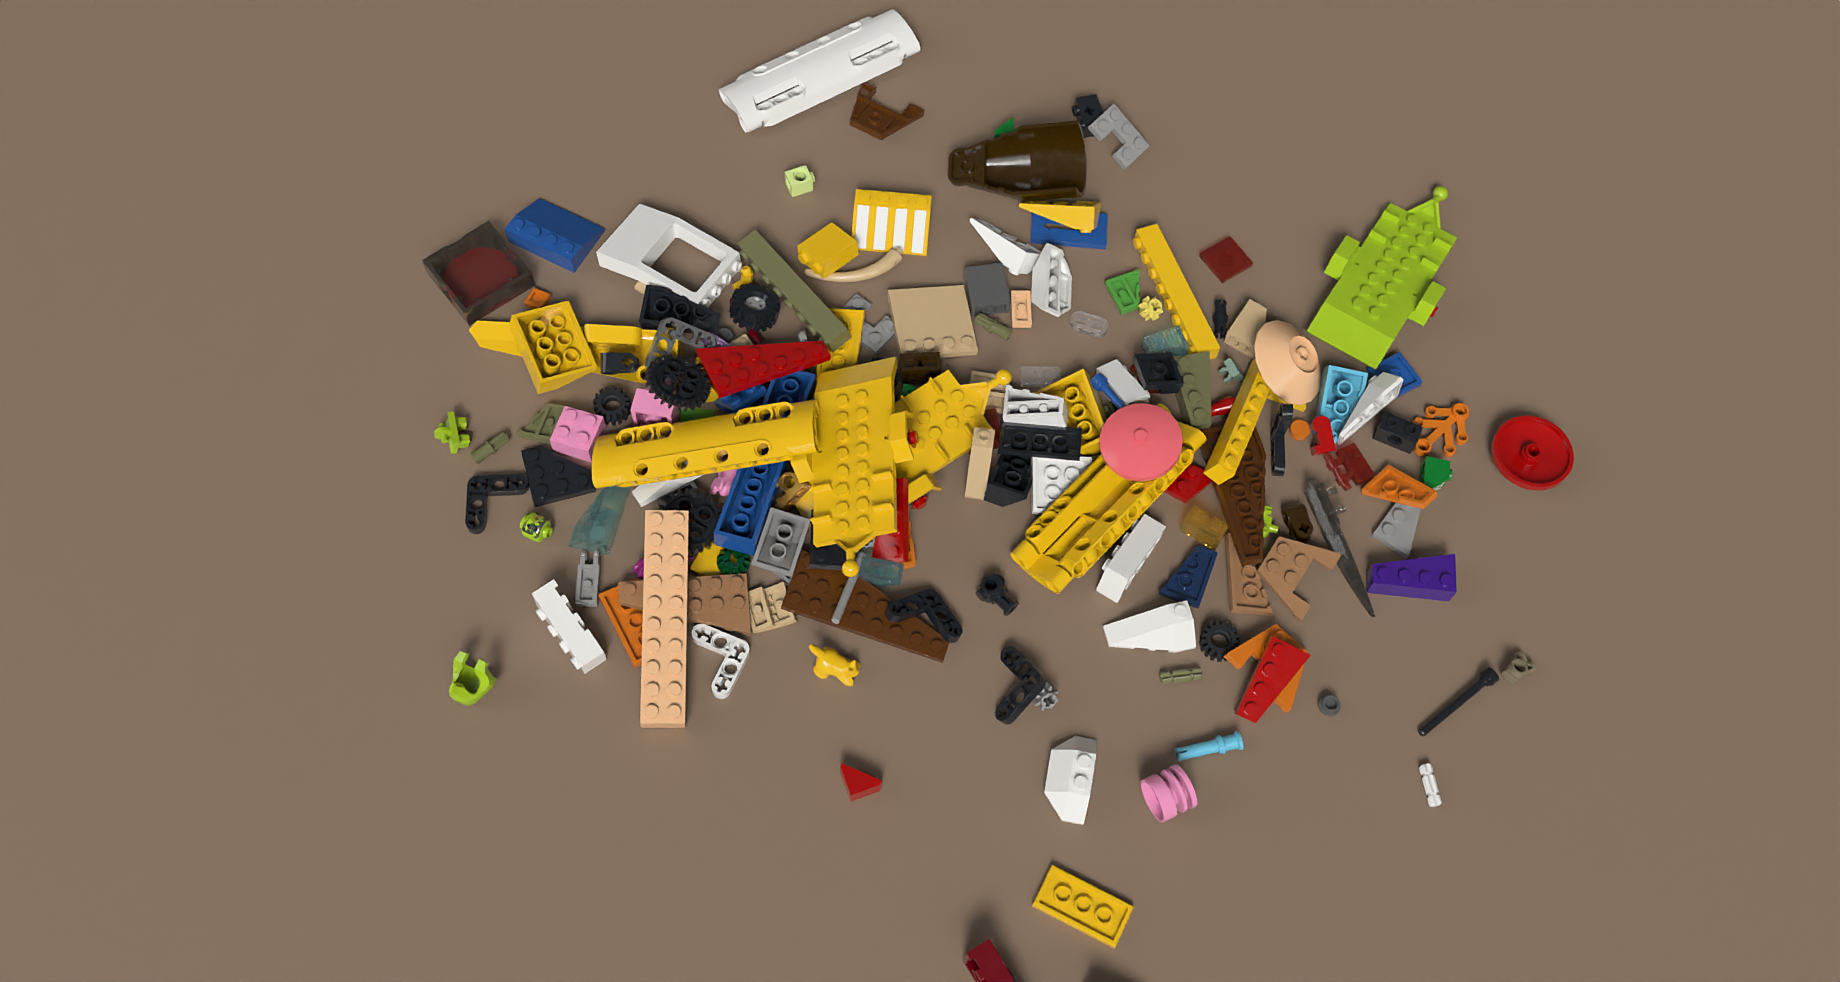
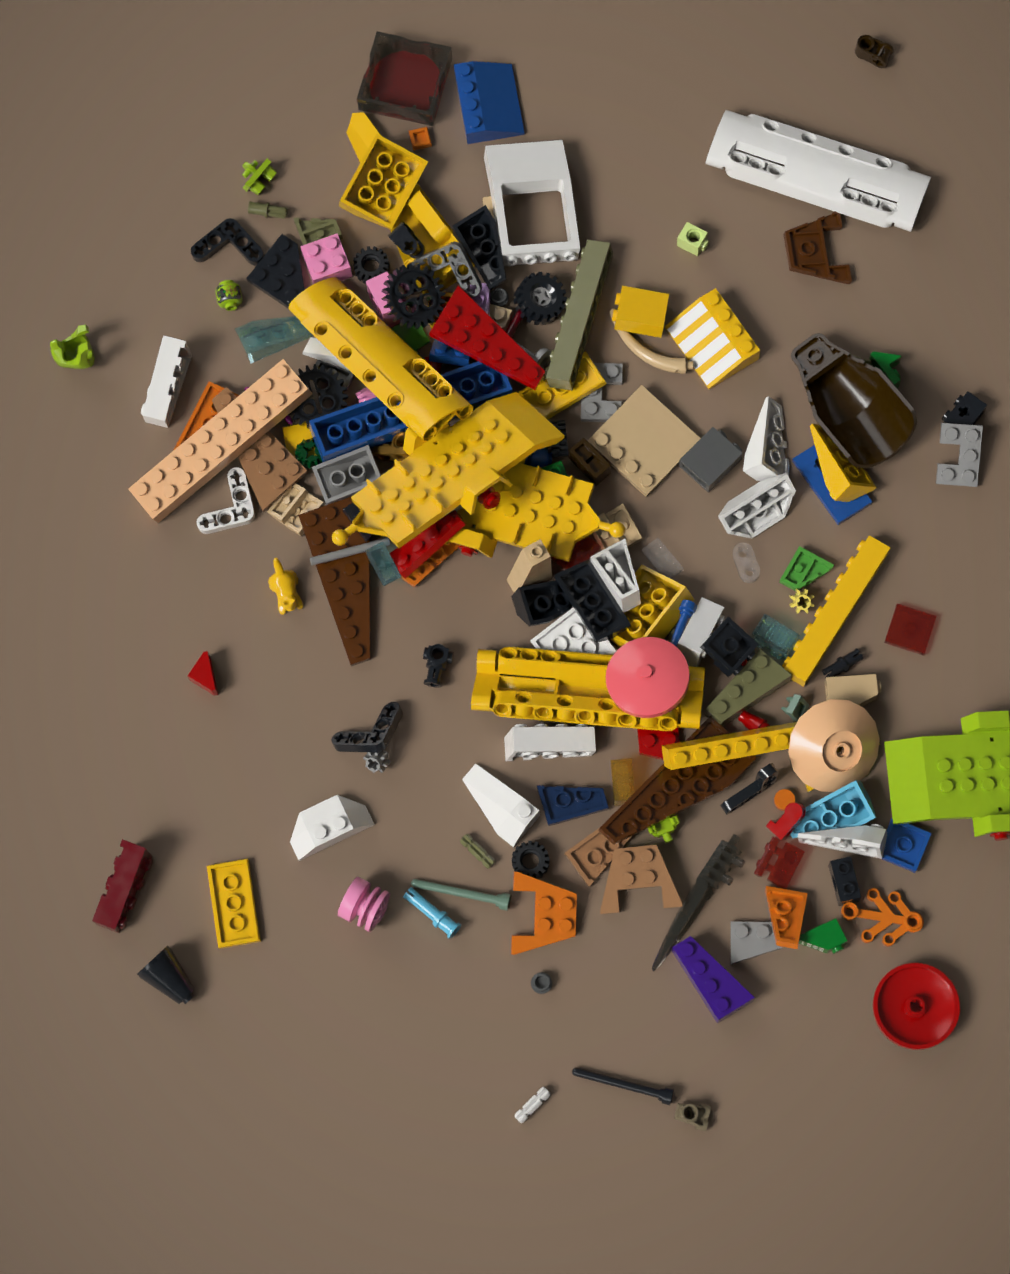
camera: 65 degrees right, 10 degrees up
(588, 581) = (216, 364): light grey hinge -> none
(746, 277) = (565, 272): yellow arm -> none
(925, 606) = (383, 618): black beam -> none
(993, 326) = (680, 490): olive axle -> none
(1021, 309) = (715, 499): light nougat plate -> none
(1238, 686) = (501, 900): none -> sand green piece
(1272, 674) = (529, 918): red wing -> none
(1298, 523) = (691, 852): dark brown piece -> none

